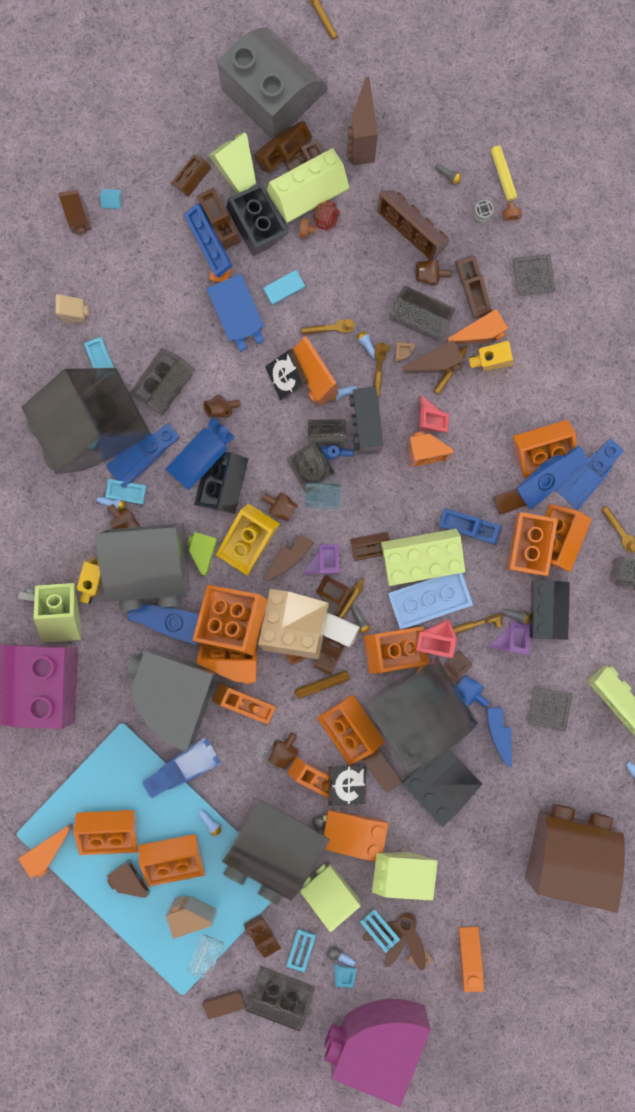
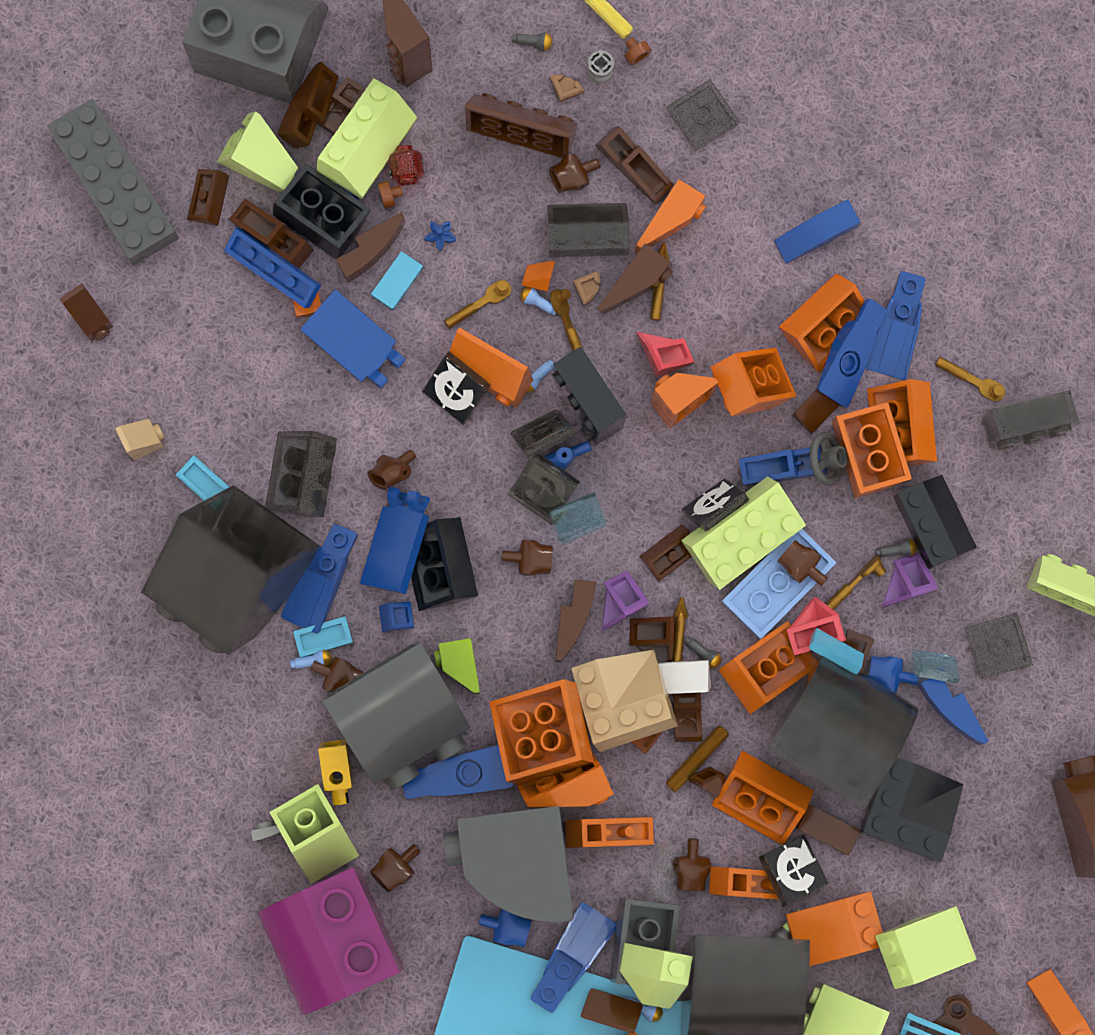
camera: 35 degrees left, 5 degrees down
(98, 659) = (394, 868): none -> reddish brown piece
(110, 198) = (120, 275): medium azure slope -> none
(134, 135) = (113, 182): none -> dark grey brick
(146, 733) = (508, 928): none -> blue piece
(178, 501) = (396, 616): none -> blue slope
(188, 815) = (612, 1010): none -> reddish brown slope
(225, 807) = (655, 974): none -> yellowish green slope
(230, 784) = (643, 925): none -> dark grey brick
(247, 538) = (509, 620): yellow slope -> none
(277, 258) = (371, 247): none -> reddish brown slope
(322, 702) = (708, 780): none -> reddish brown slope
(326, 271) = (440, 234): none -> blue plant
(375, 328) = (539, 275): none -> orange slope
(414, 530) = (715, 504): none -> tile
(443, 662) = (836, 651): none -> medium azure tile
(449, 594) = (801, 562): none -> reddish brown piece
(454, 214) = (566, 87): none -> medium nougat tile
(477, 463) = (753, 381): none -> orange brick
(501, 357) = (711, 230): yellow torso -> none
(502, 702) = (935, 666): none -> clear light blue piece
(503, 536) = (832, 457): none -> dark grey piece
(569, 386) = (817, 231): none -> blue slope

